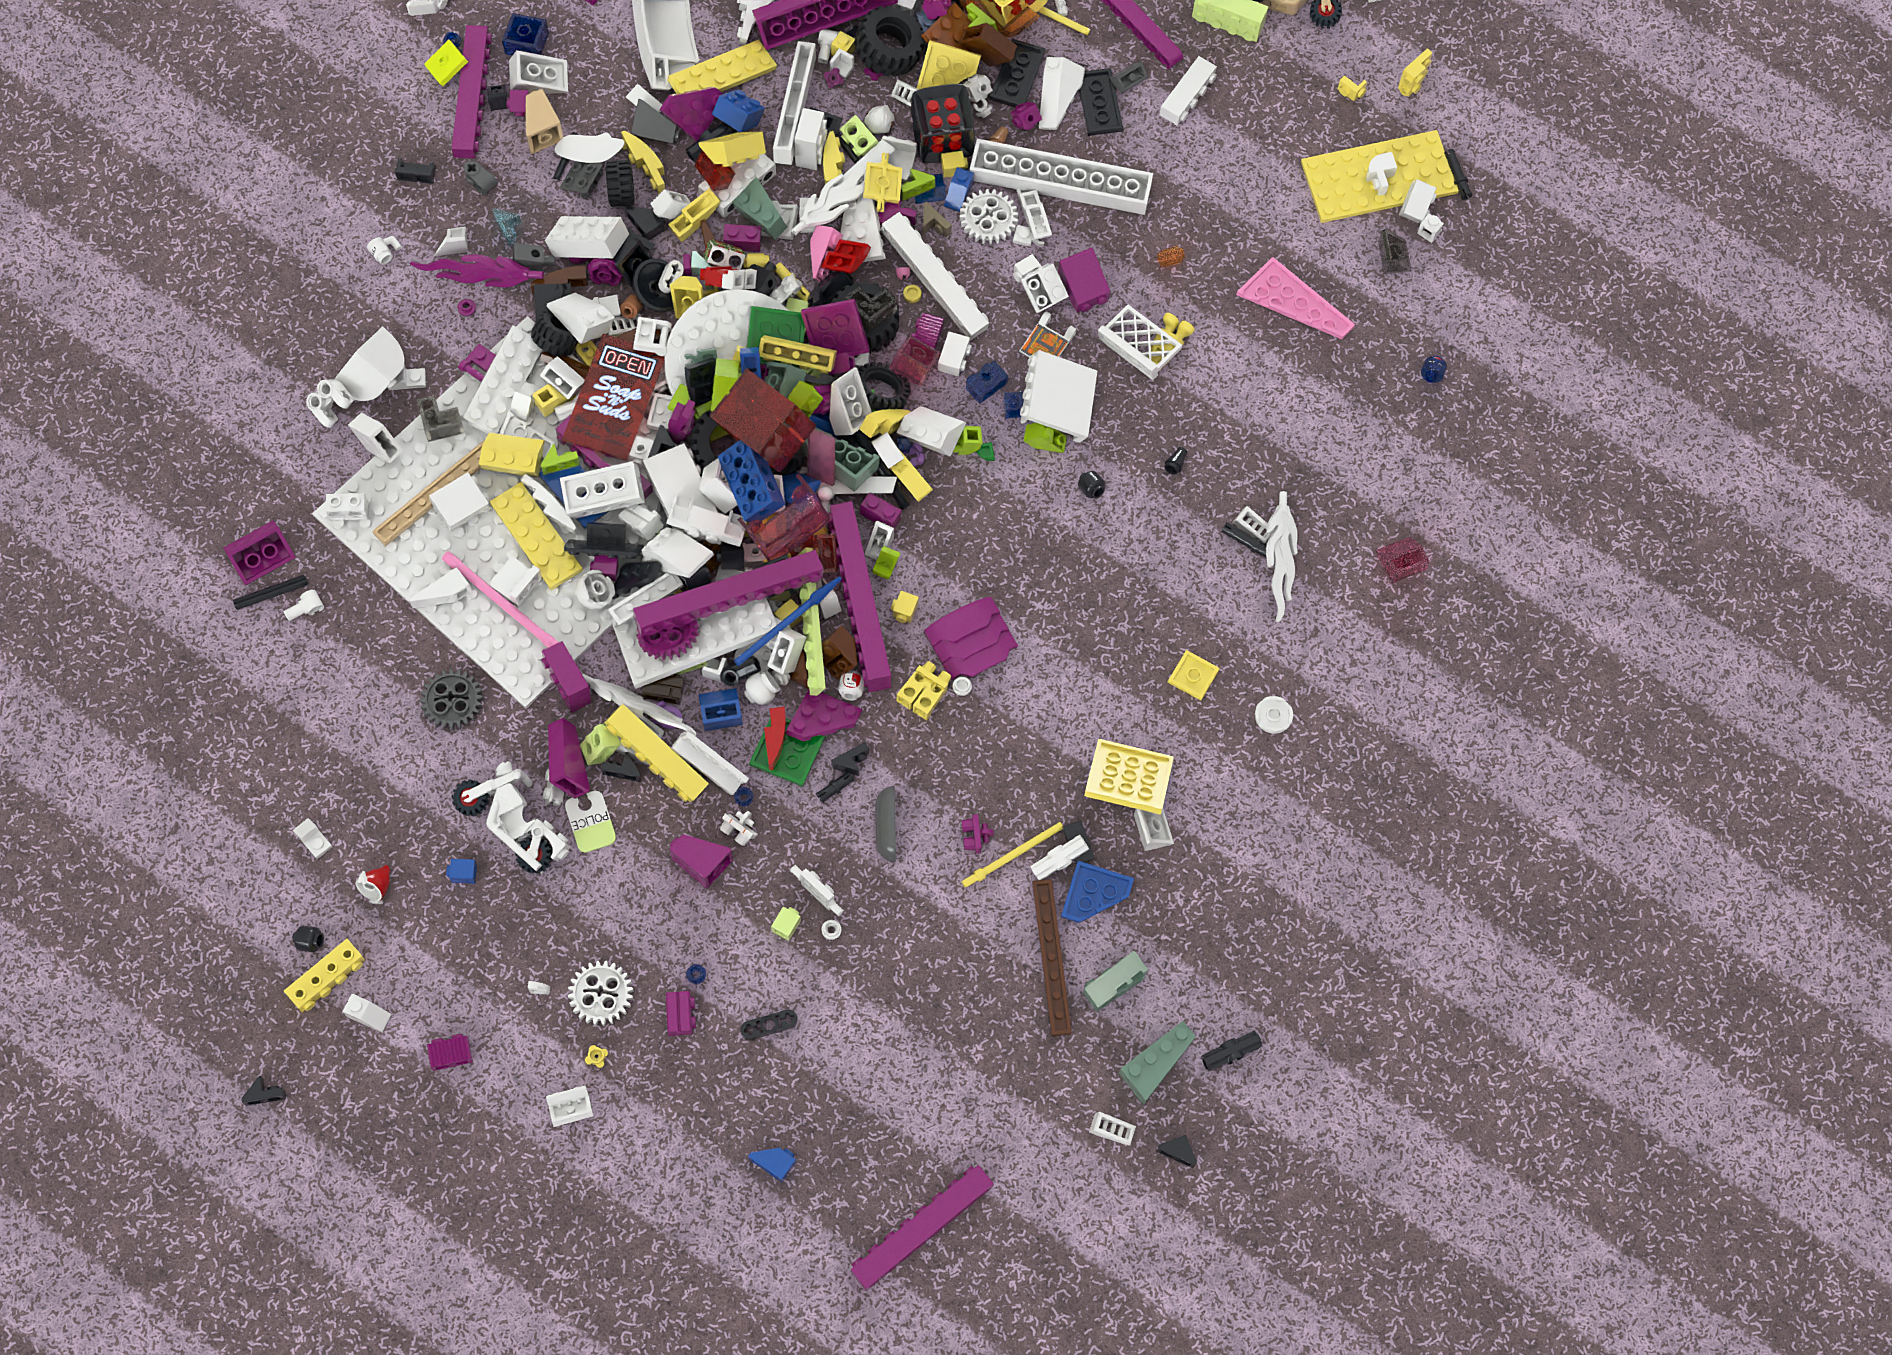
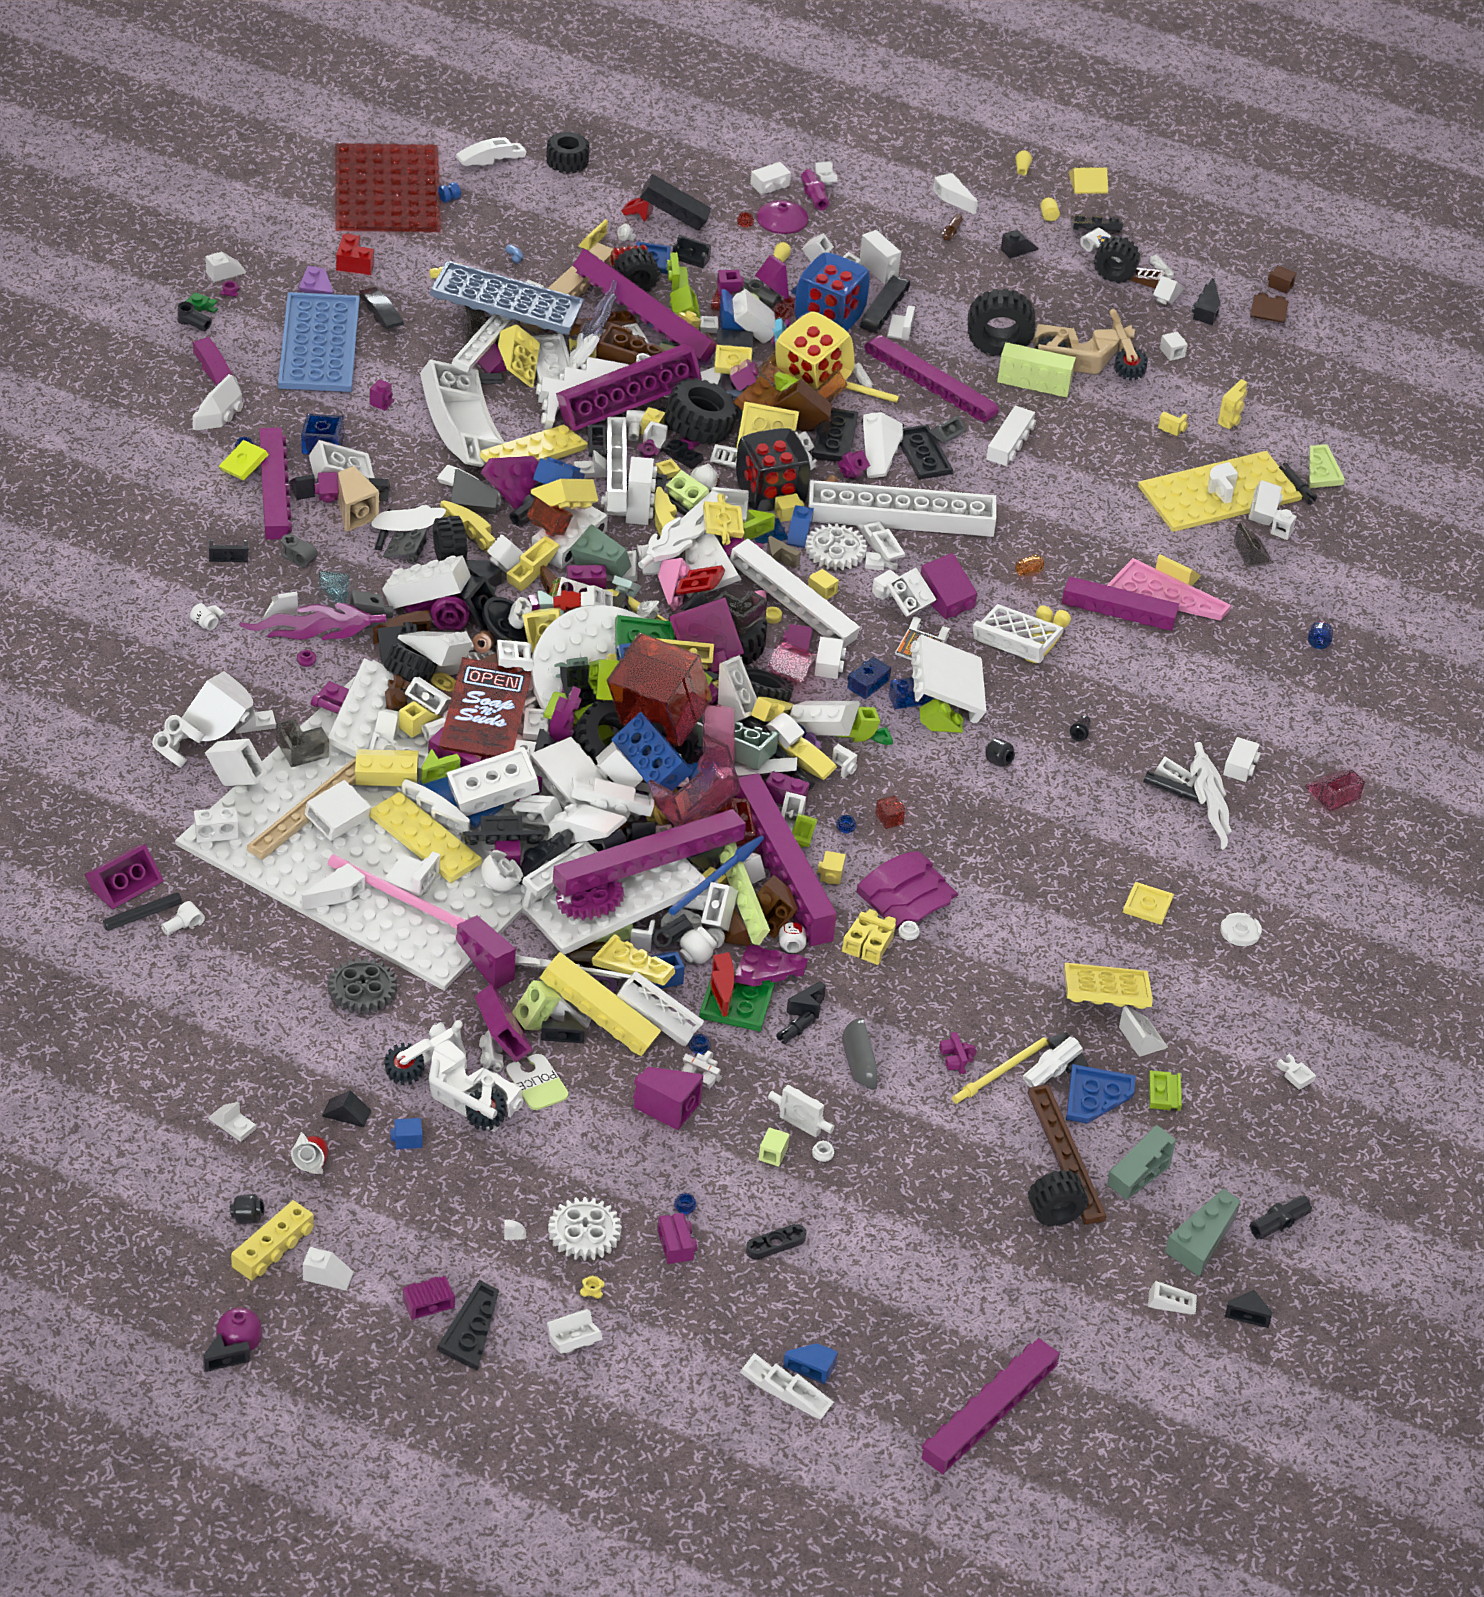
camera: 10 degrees left, 25 degrees down
(280, 1068) = (240, 1326): none -> magenta cylinder
(415, 837) = (347, 1109): none -> black slope
(479, 1091) = (469, 1329): none -> black wing
(535, 369) = (394, 695): none -> reddish brown plate
(568, 106) = (383, 487): none -> black slope
(689, 705) = (626, 959): none -> light yellow wing
(746, 1184) = (786, 1387): none -> white slope
(773, 96) = (593, 468): none -> white slope
(778, 250) = (626, 586): none -> light aqua slope
(787, 49) = (597, 430): none -> black slope
(847, 104) = (668, 468): none -> light yellow plate
(865, 85) = (679, 451): none -> black slope
(930, 549) = (846, 824): none -> clear blue plate
(945, 478) = (845, 759): none -> white bracket
(966, 263) = (823, 584): none -> light yellow brick
(973, 545) = (890, 811): none -> clear red brick
(1028, 1015) = (1058, 1198): none -> black tyre
(1158, 896) = (1164, 1090): none -> lime plate
(1247, 312) = (1120, 603): none -> magenta brick
(1286, 890) = (1296, 1073): none -> white plate
(1313, 276) = (1177, 570): none -> light yellow slope
(1321, 514) = (1241, 759): none -> white brick
(1488, 157) = (1323, 468): none -> yellowish green wing

